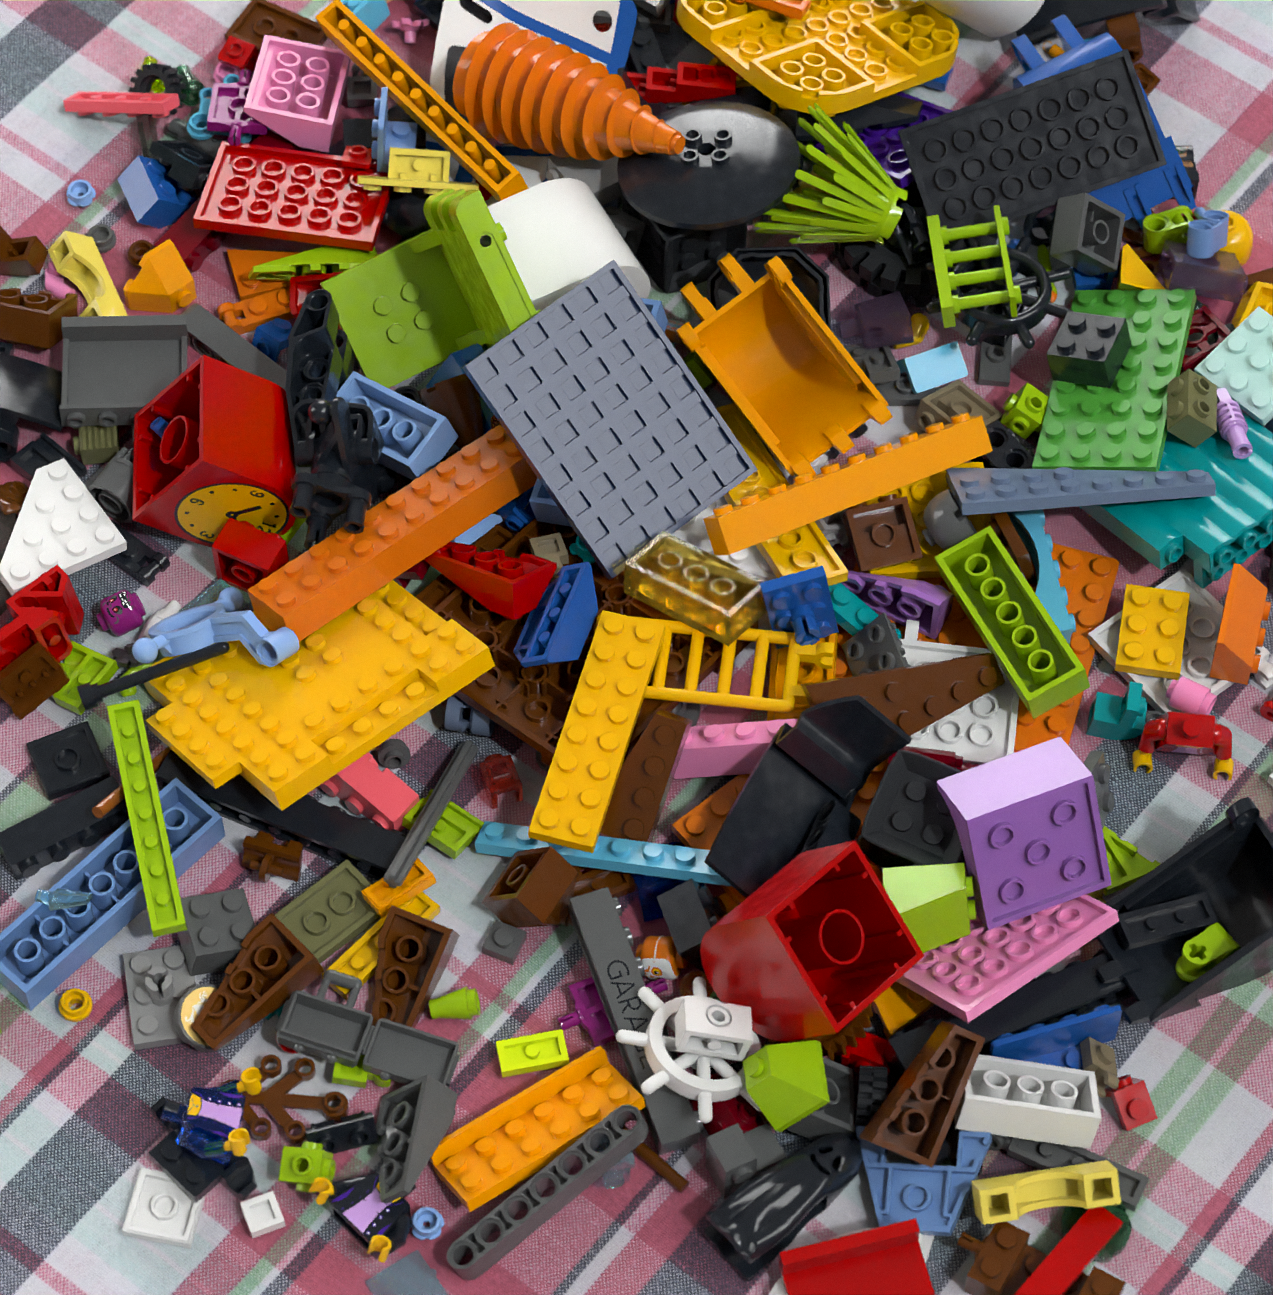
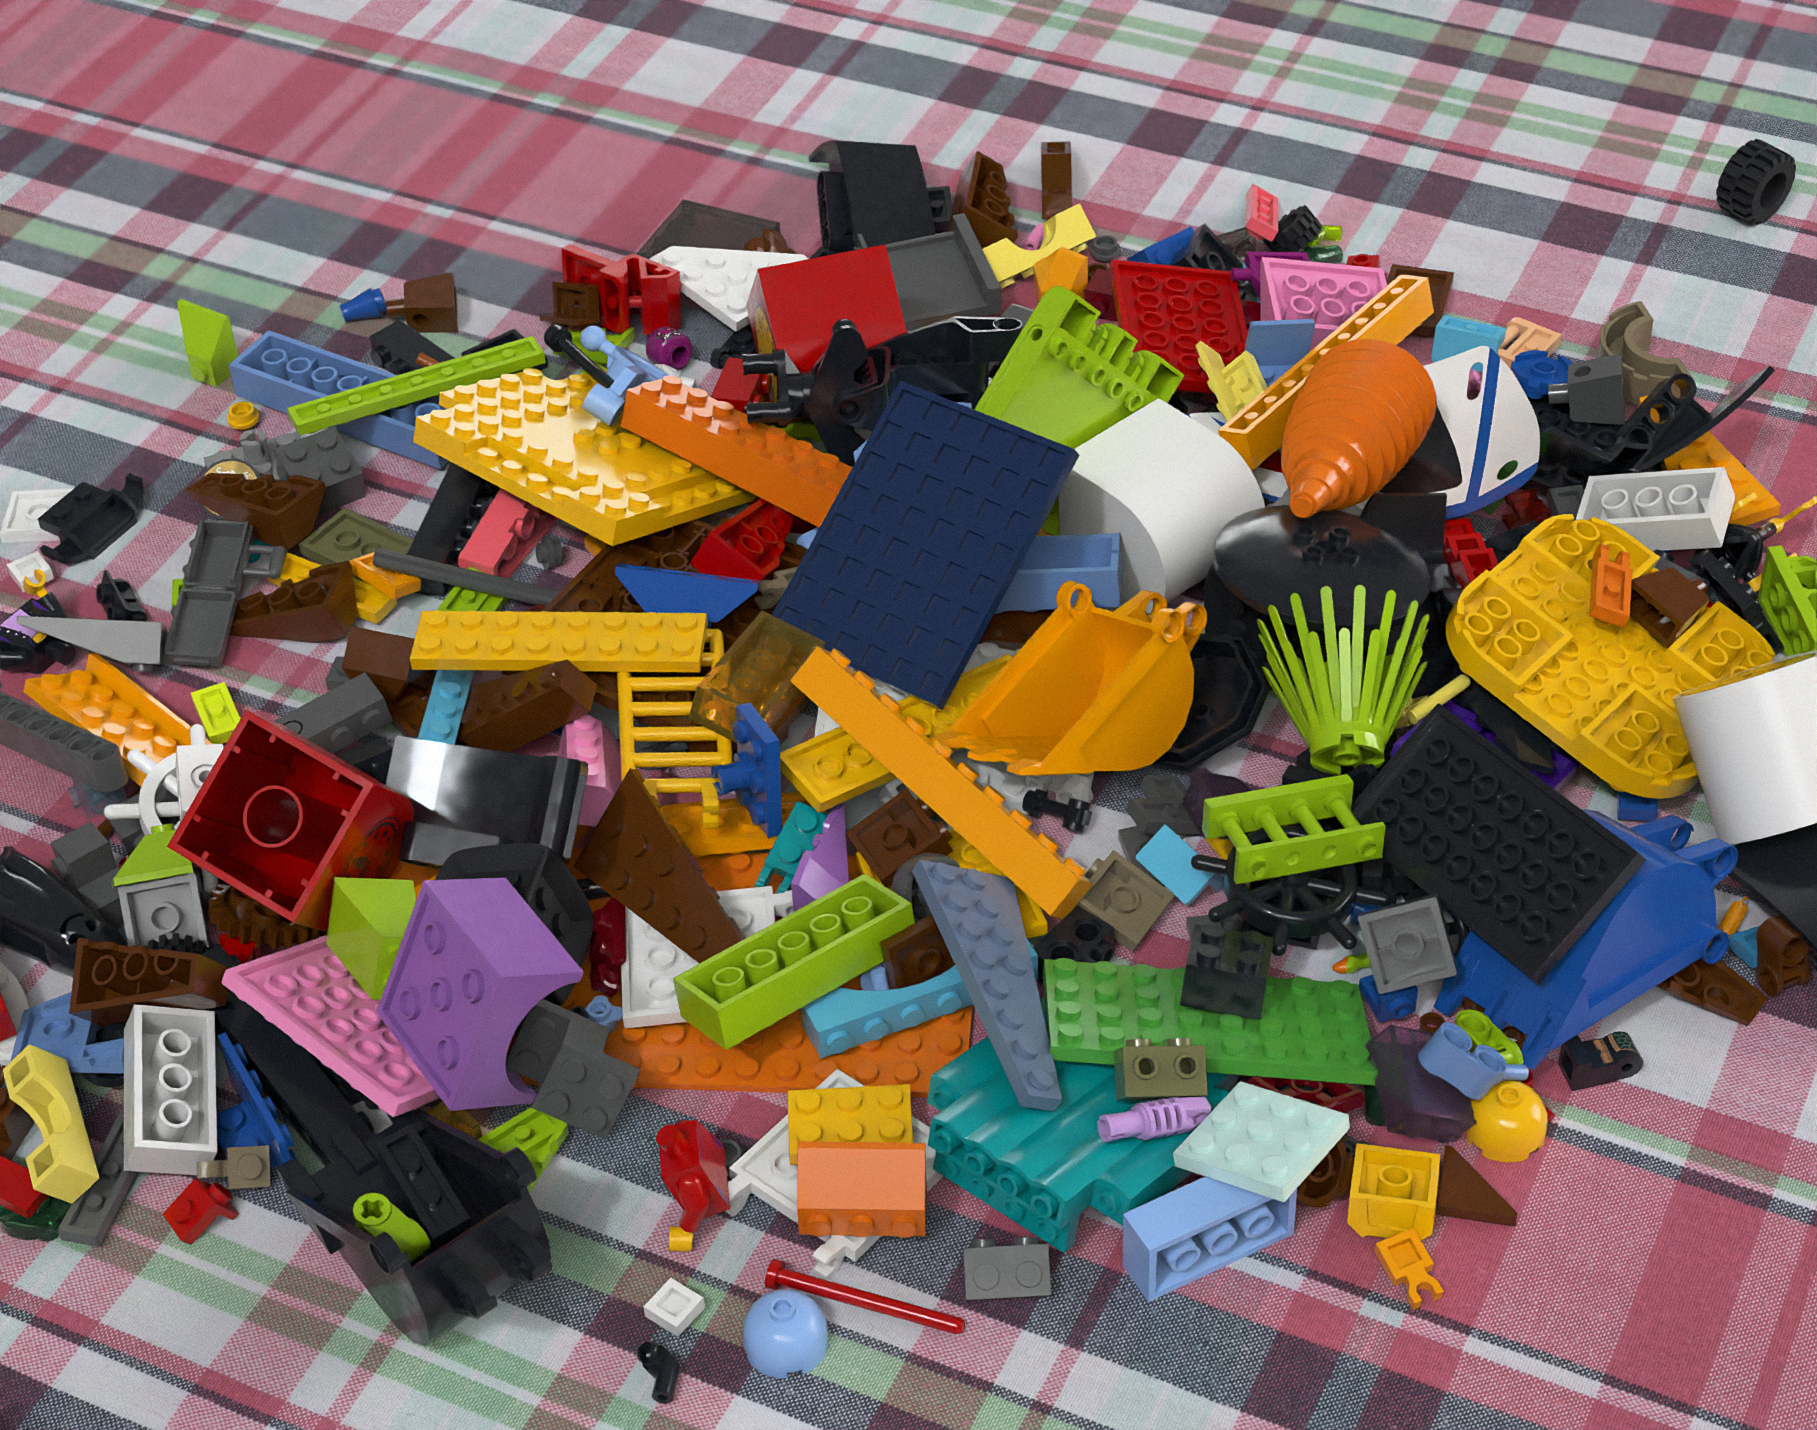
camera: 80 degrees right, 15 degrees down
(62, 898) = (324, 359): clear light blue bar -> none
(78, 188) = (1153, 225): light blue plate -> none
(213, 1117) = (108, 503): torso -> none
(271, 858) = (416, 497): reddish brown hips -> none
(277, 1099) = (153, 532): reddish brown plant -> none
(305, 1164) = (74, 581): lime brick -> none
(430, 1215) = (19, 675): light blue plate -> none
(456, 1005) = (267, 652): lime cone -> none
(875, 648) = (755, 862): dark grey hinge -> none
(1025, 410) = (1142, 947): lime brick -> none
(1118, 716) = (723, 1108): teal brick -> none
(1134, 273) = (1386, 1008): yellow slope -> none
(1190, 696) = (751, 1167): bright pink brick -> none

